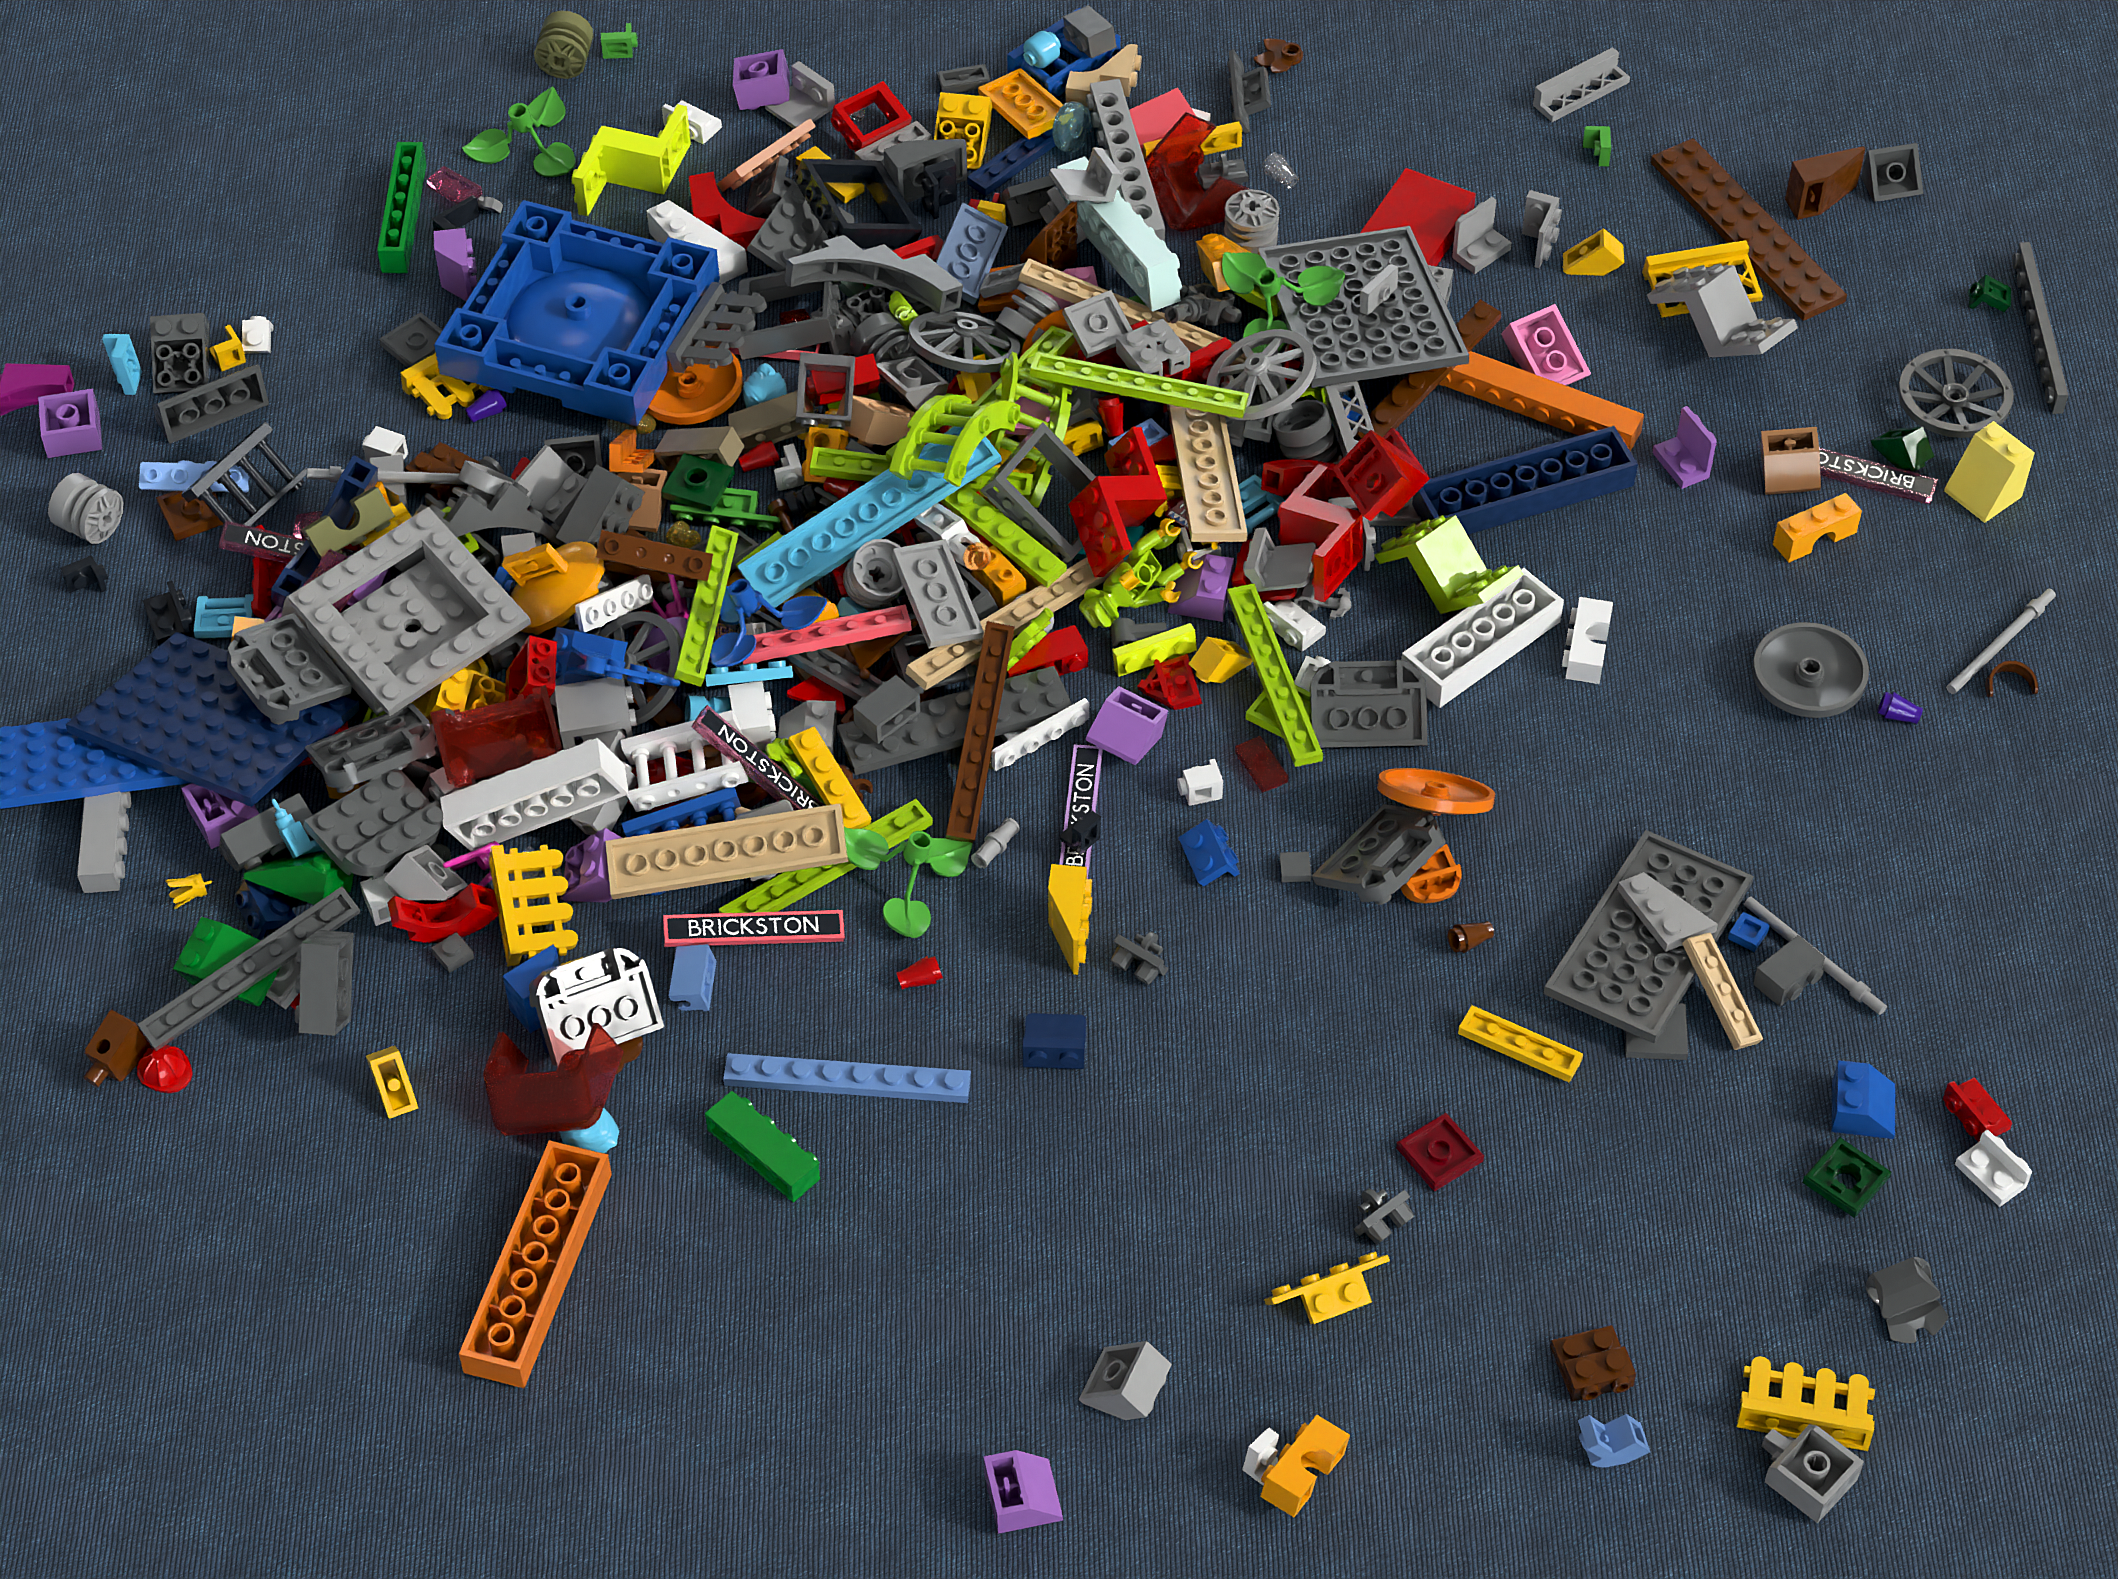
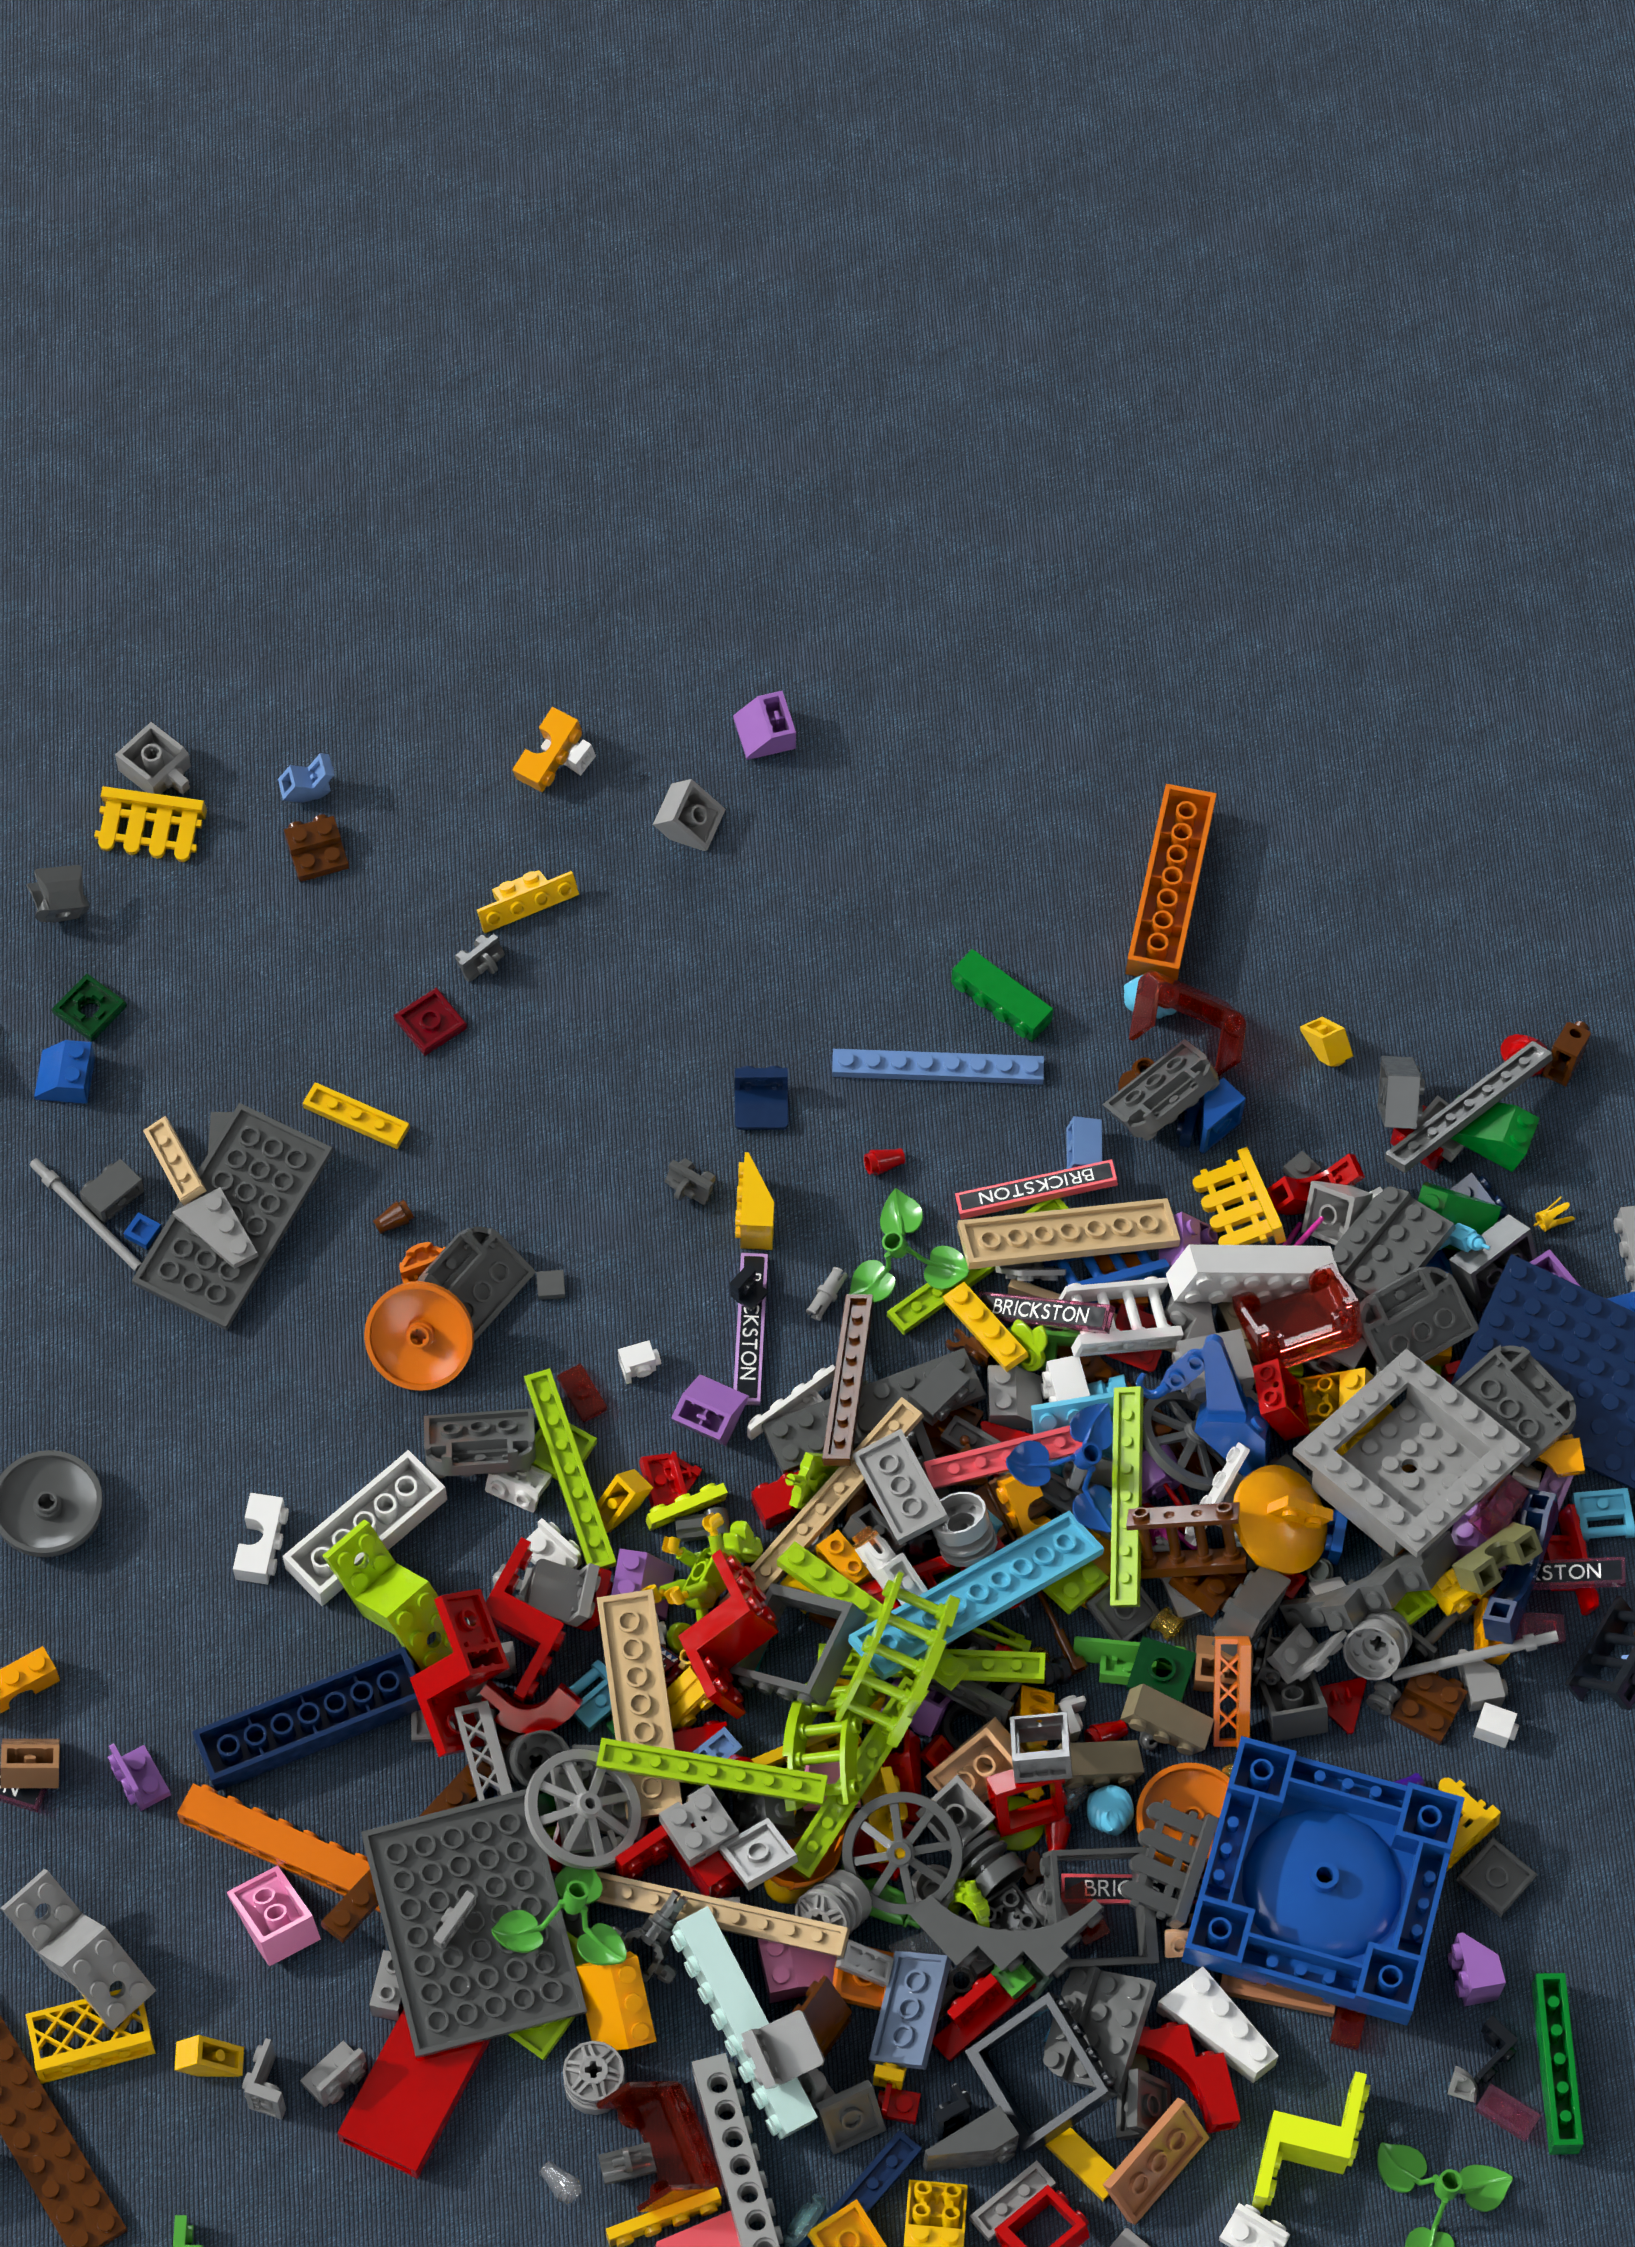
camera: 175 degrees right, 10 degrees up
(1208, 852) = (629, 1291): blue bracket -> none

